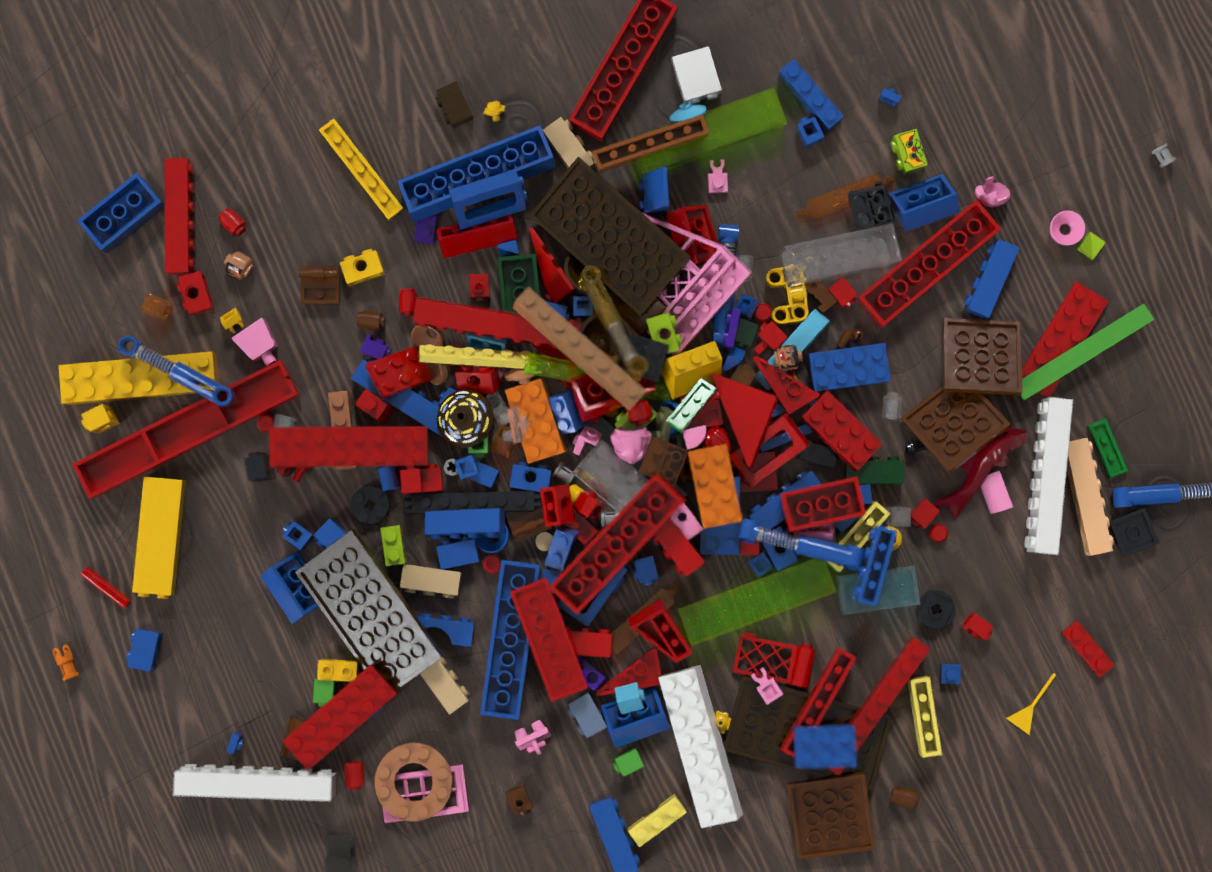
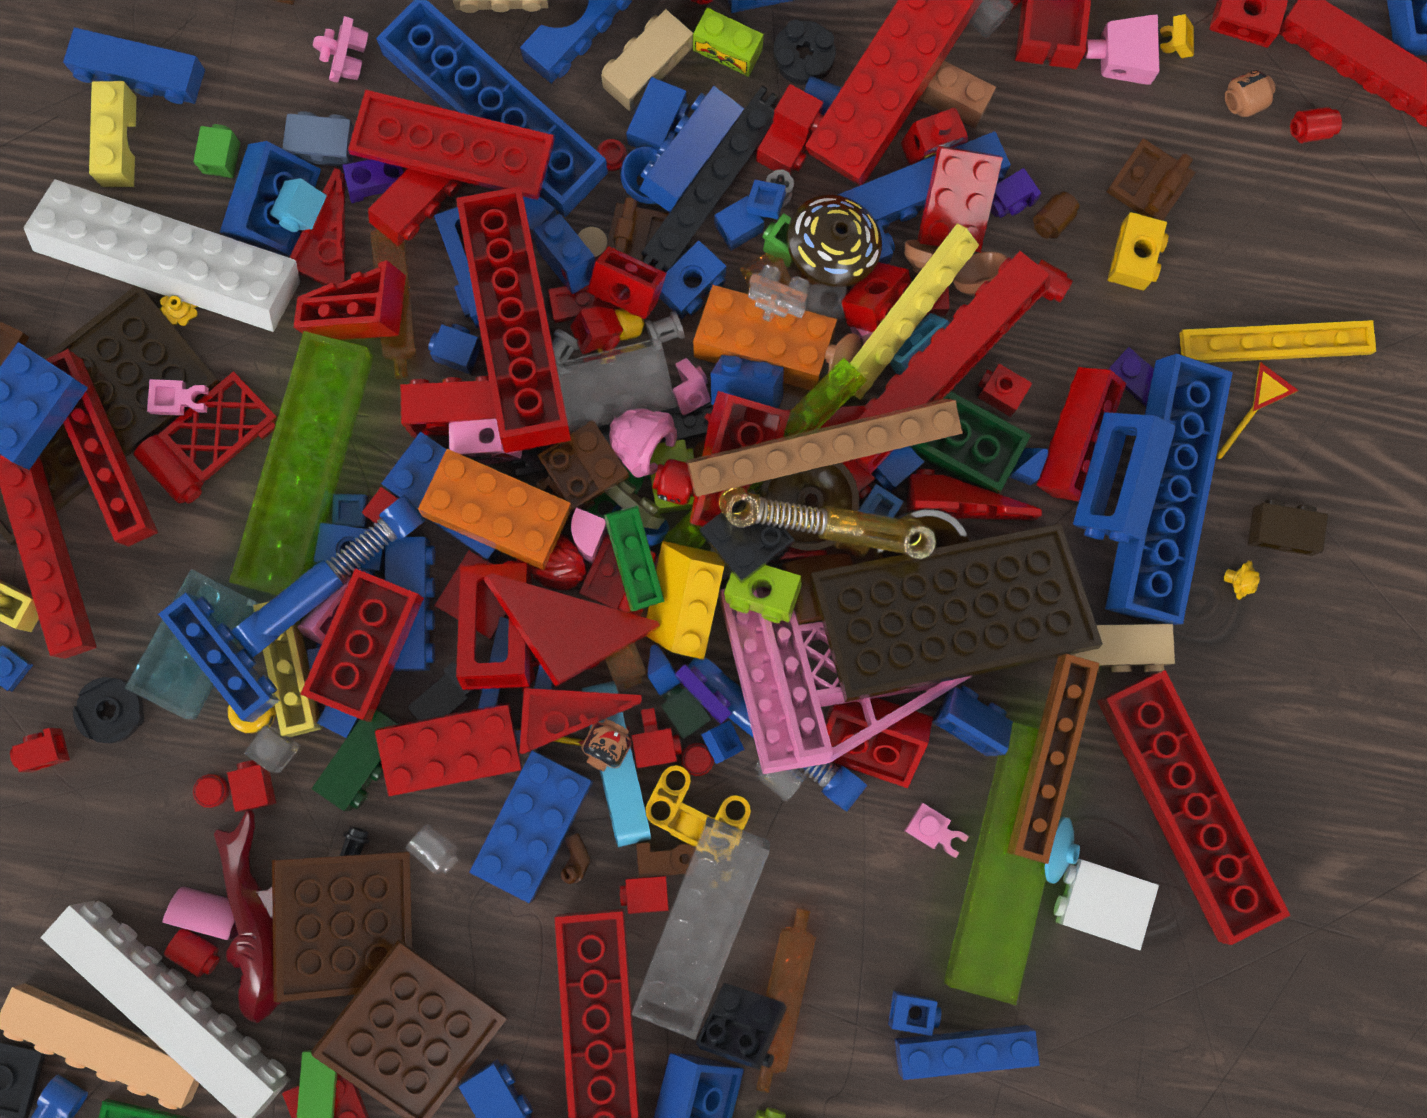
camera: 120 degrees right, 5 degrees down
(387, 158) = (1268, 390): none -> yellow piece
(1017, 484) = (192, 953): none -> red brick

